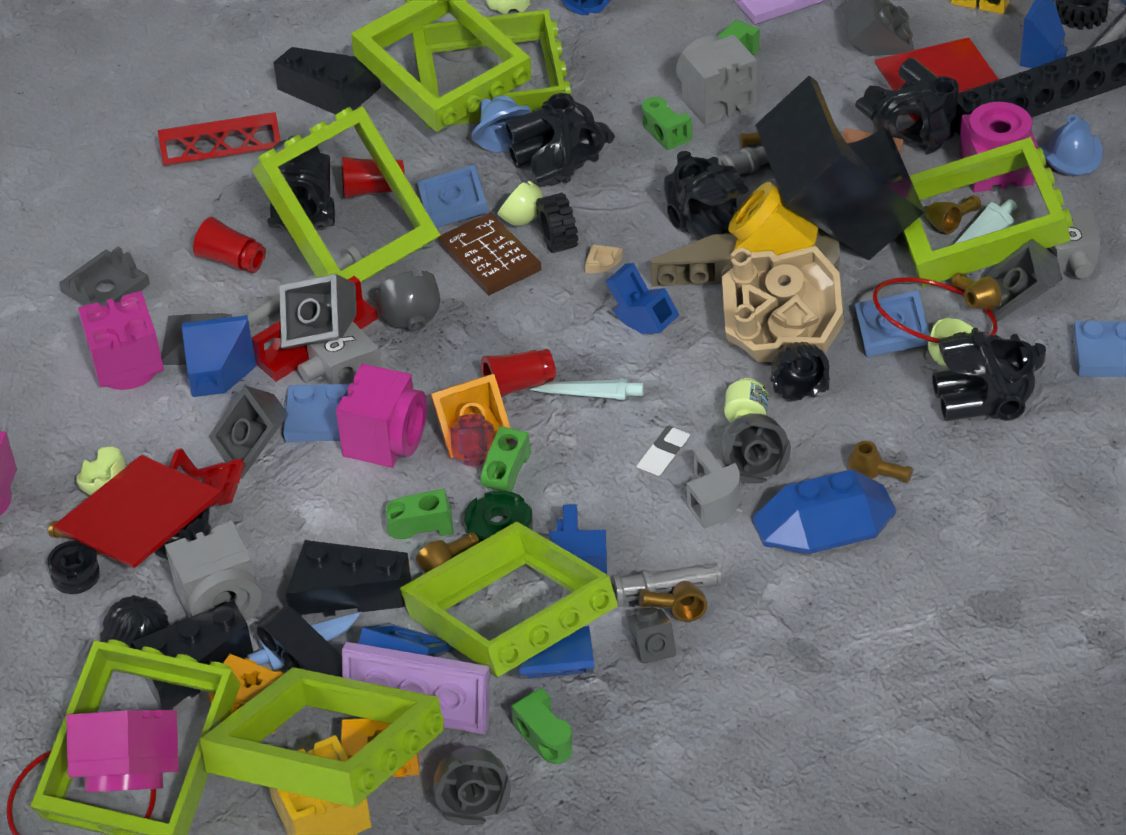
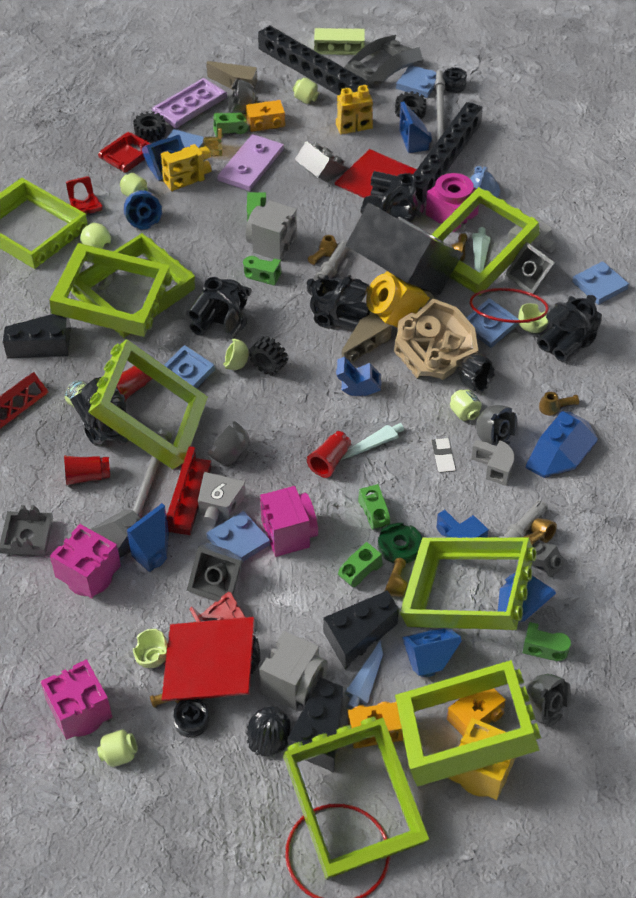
camera: 40 degrees left, 5 degrees up
(122, 748) = (369, 805): dark pink piece -> none
(299, 643) = (380, 680): black beam -> none
(316, 310) = (194, 480): dark grey slope -> none
(458, 684) = (469, 657): lavender plate -> none
(469, 397) = (332, 490): light orange slope -> none
(471, 438) = (348, 505): clear pink head -> none
(489, 253) = (239, 393): reddish brown tile -> none
(491, 131) = (174, 311): medium blue helmet -> none
(602, 258) = (303, 364): tan tile -> none
(978, 294) = (521, 283): pearl gold bar -> none

